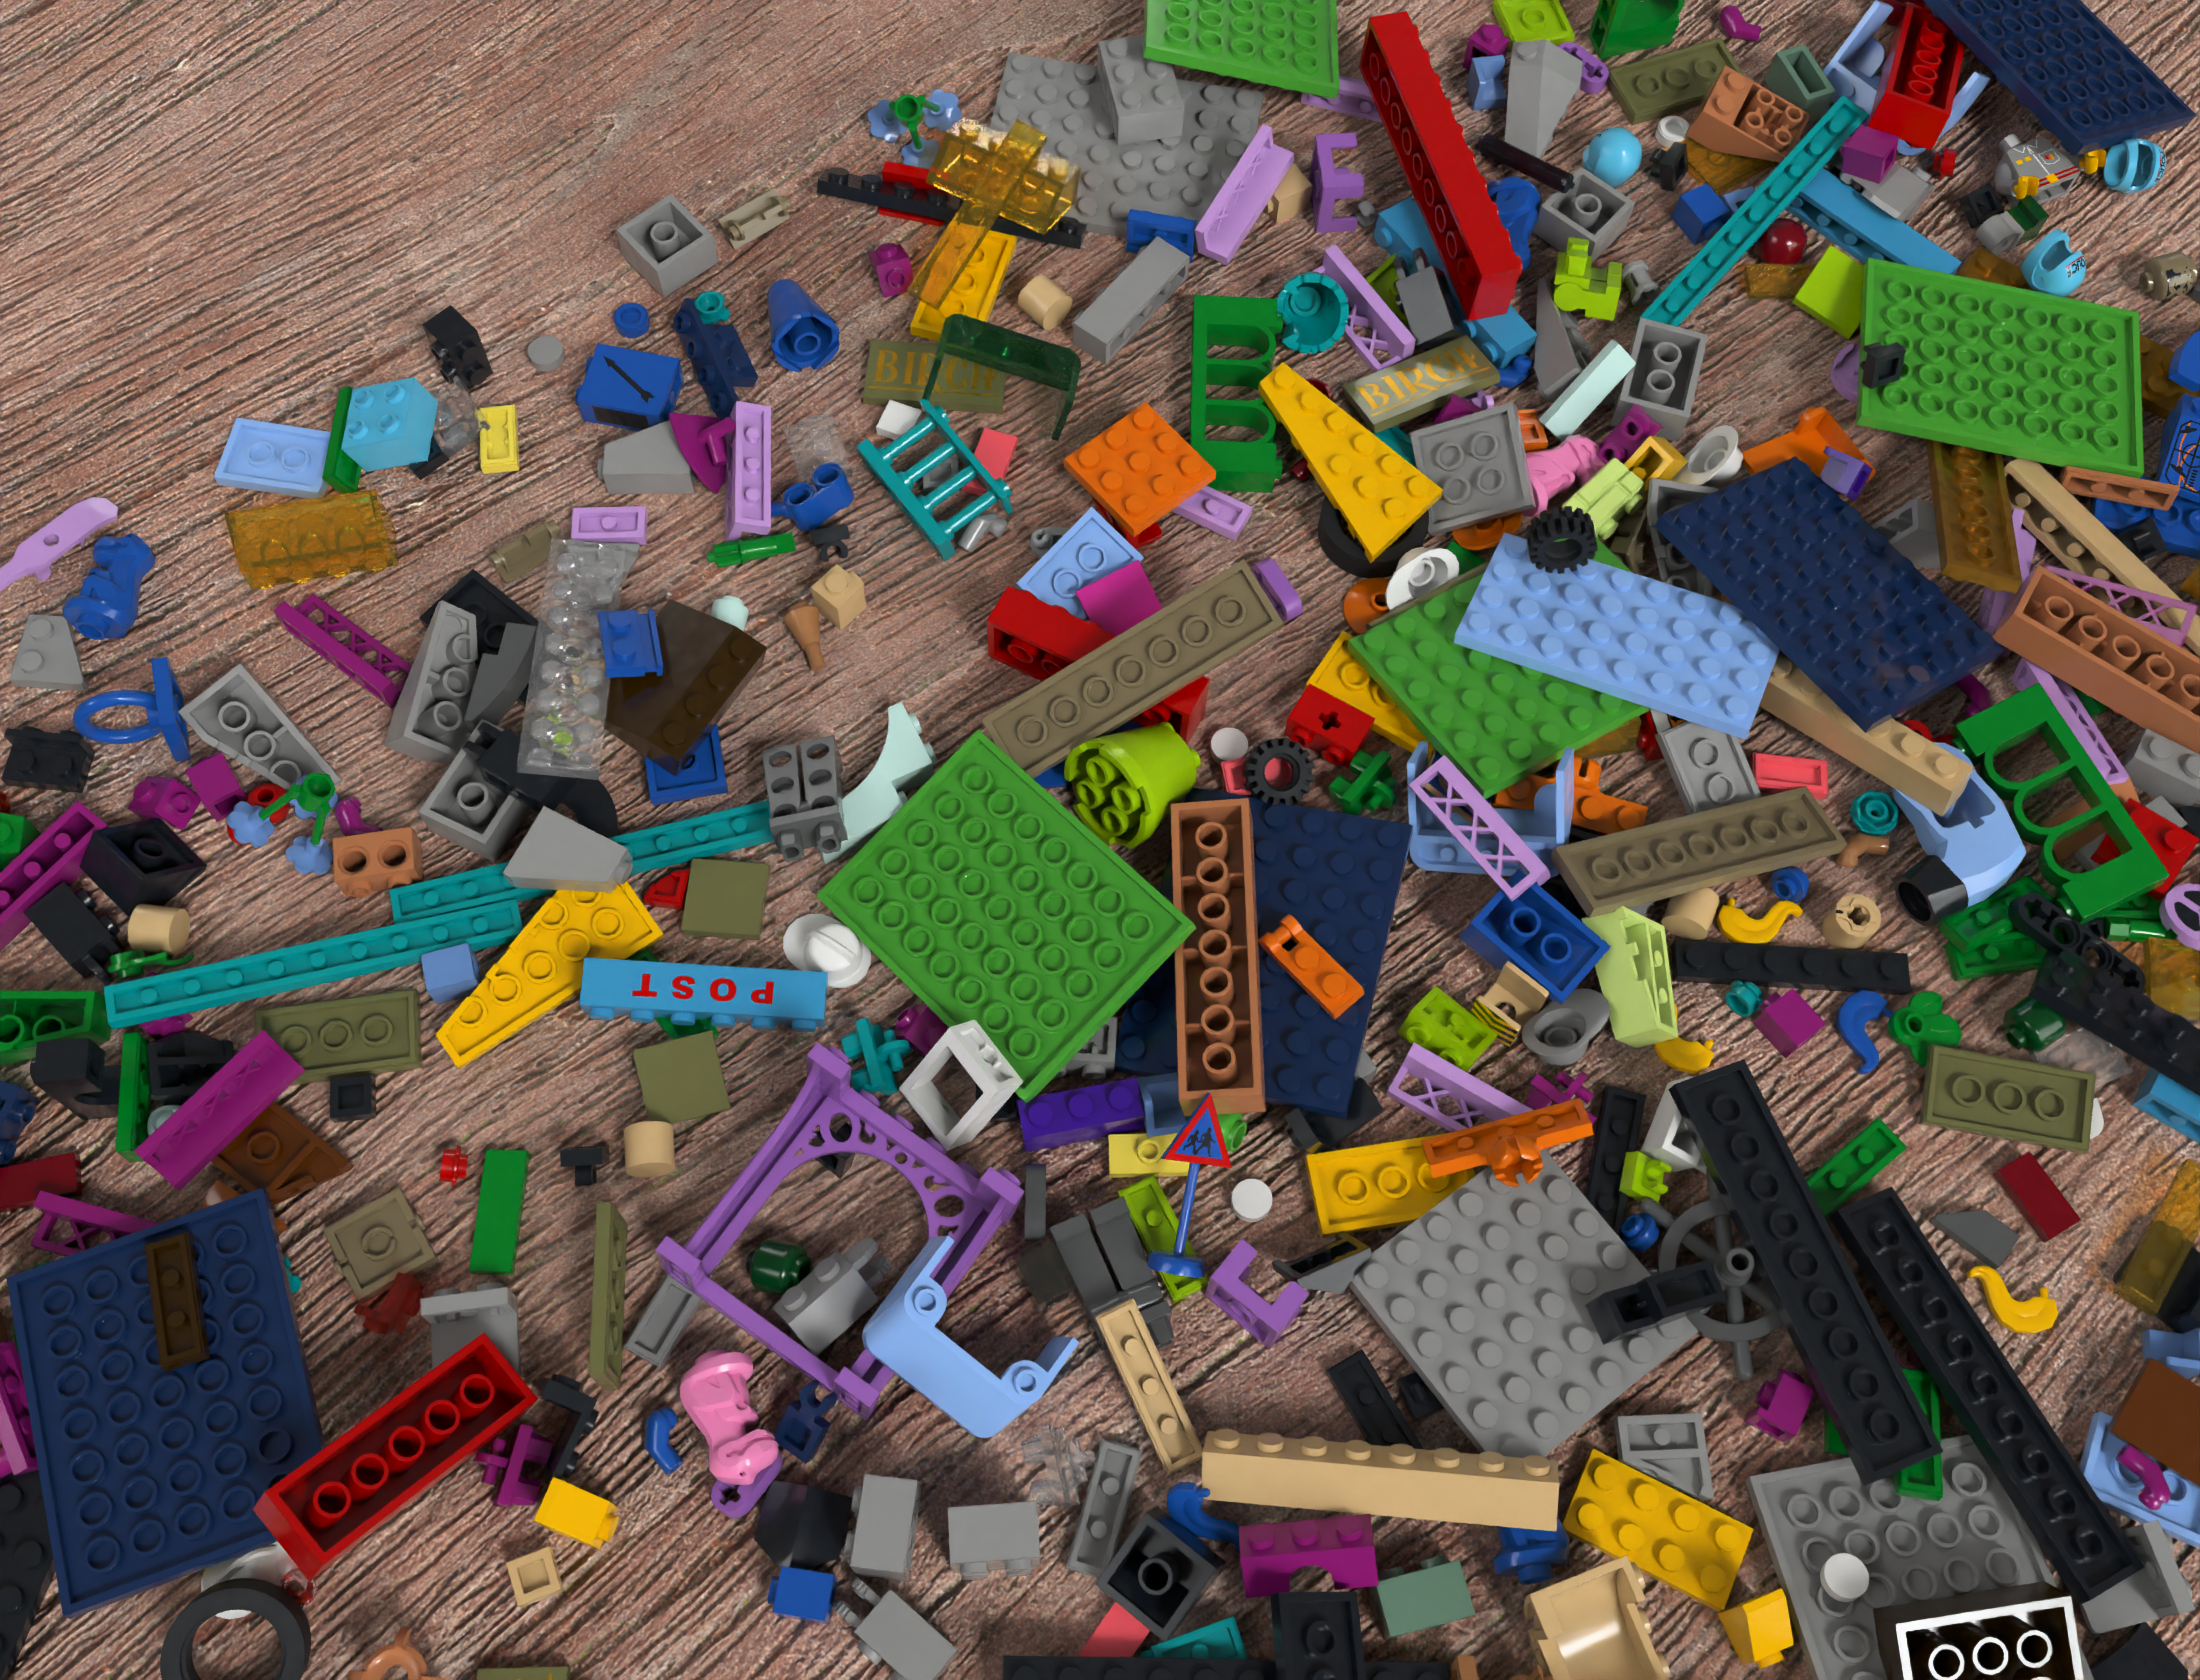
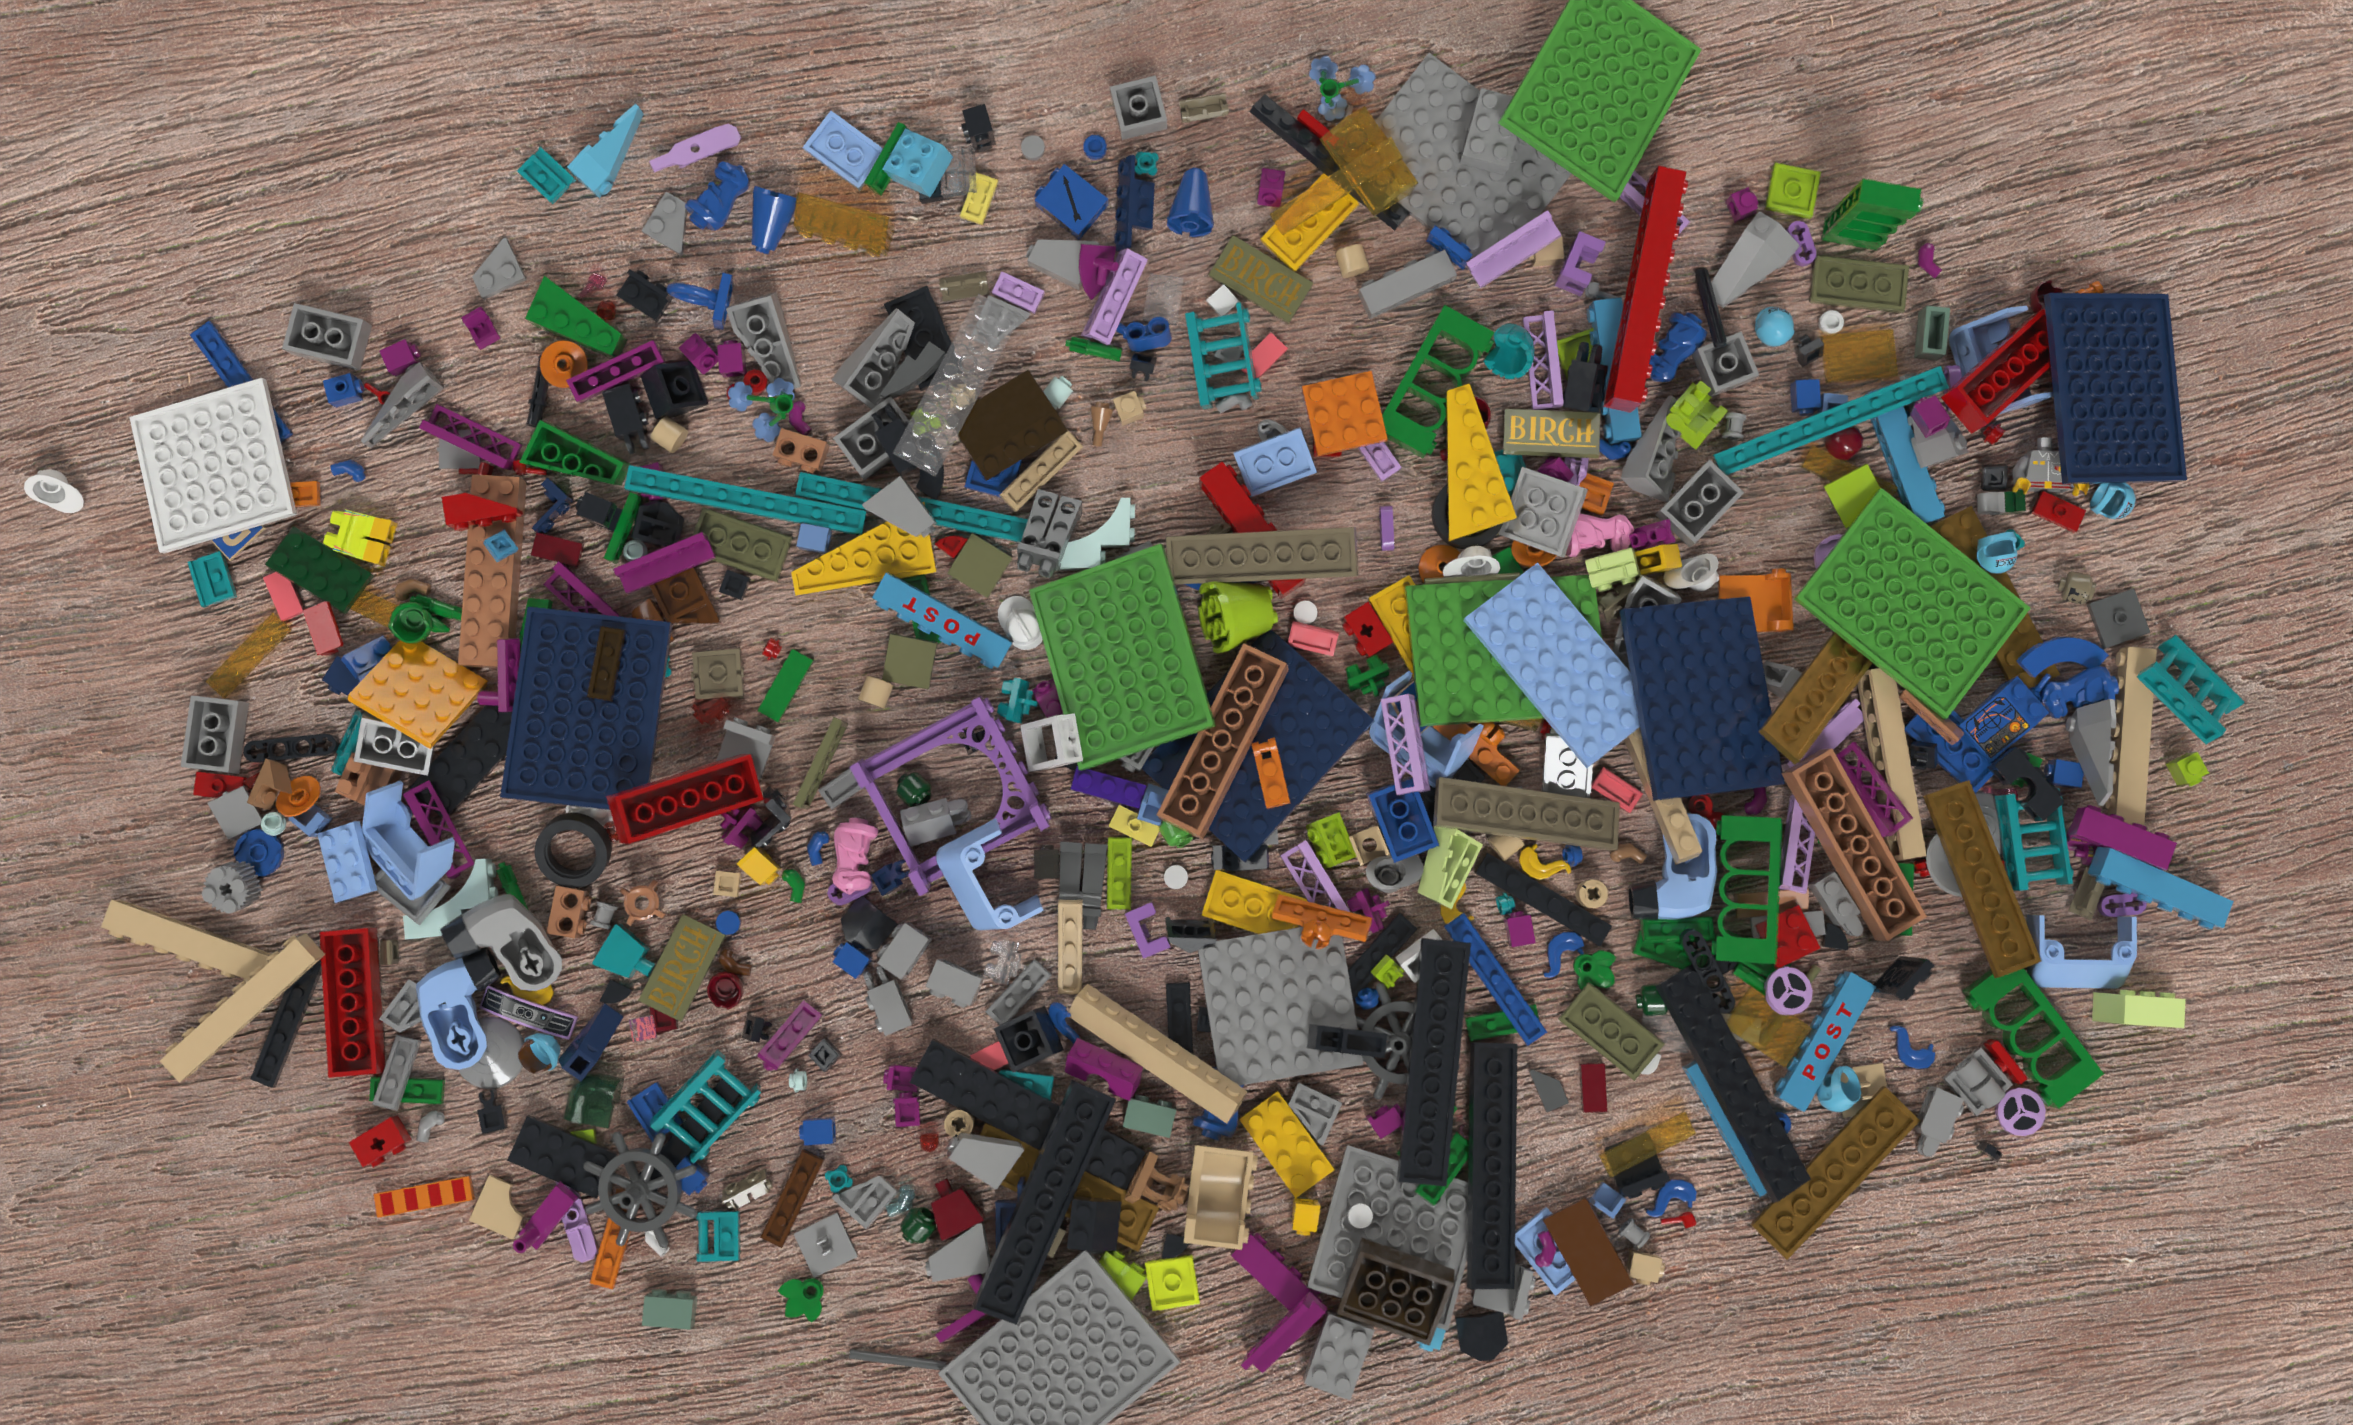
camera: 30 degrees right, 20 degrees up
(131, 963) = (650, 452): green plate -> none
(200, 574) = (770, 218): none -> blue cone
(346, 656) = (827, 302): magenta fence -> none
(565, 1643) = (728, 922): none -> blue tile
(585, 1161) = (840, 680): black tile -> none
(629, 643) = (991, 393): blue plate -> none
(653, 1515) = (796, 882): none -> green arm
(753, 730) = (1041, 471): none -> tan tile
(1009, 353) = (1287, 272): clear green windscreen -> none
(1035, 1202) = (1062, 821): dark grey beam -> none
(1119, 599) = (1289, 497): dark pink piece -> none
(1197, 1143) = (1154, 842): blue piece -> none
(1300, 765) = (1329, 636): black tyre -> none
(1485, 83) = (1728, 229): medium blue panel -> none
(1556, 526) = (1556, 594): black tyre -> none
(1587, 391) = (1646, 493): light aqua tile -> none
(1746, 119) = (1876, 345): nougat slope -> none
(1817, 1114) = (1497, 981): none -> blue tile
(1844, 473) = (1769, 624): panel -> none
(1881, 805) = (1655, 834): teal plate -> none
(1882, 364) = (1829, 572): black tile -> none
(2019, 1317) = (1545, 1143): yellow piece -> none
(2080, 211) = (2058, 511): none -> red plate

